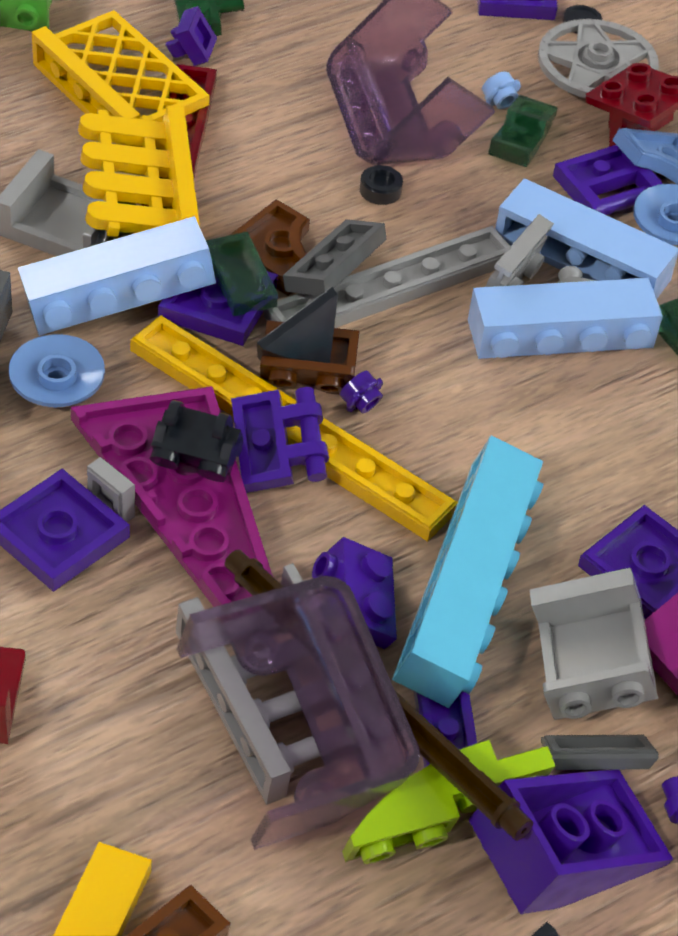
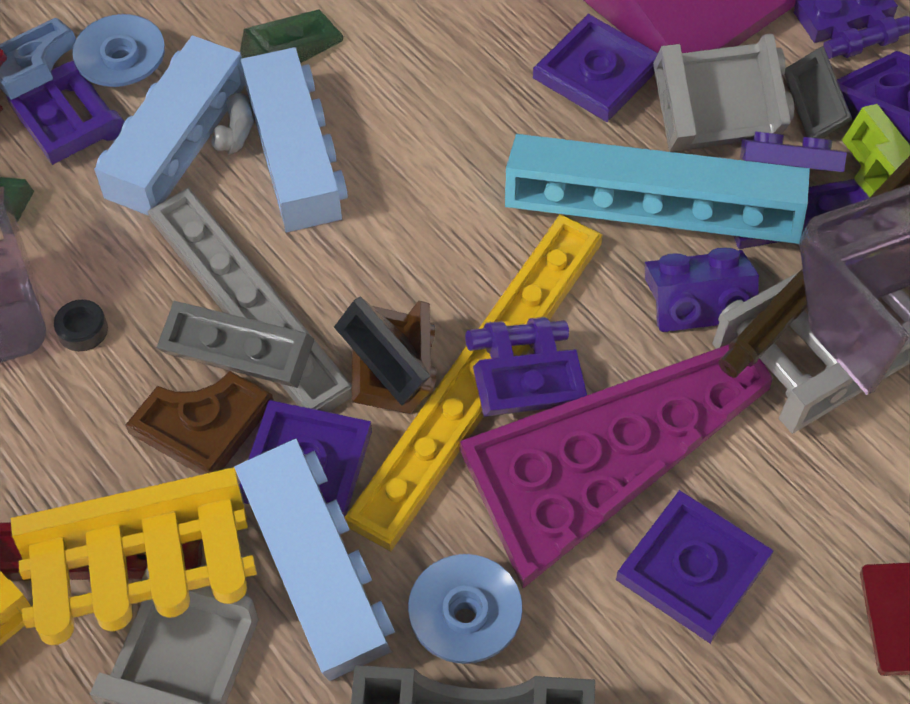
camera: 90 degrees left, 10 degrees up
(112, 488) = (634, 519): light grey tile -> none
(196, 440) = (575, 416): black piece -> none
(241, 274) = (300, 417): clear green tile -> none
(362, 392) = (439, 302): dark purple plate -> none
(505, 694) = (813, 153): none -> dark purple plate
(523, 256) = (226, 175): light grey plate -> none

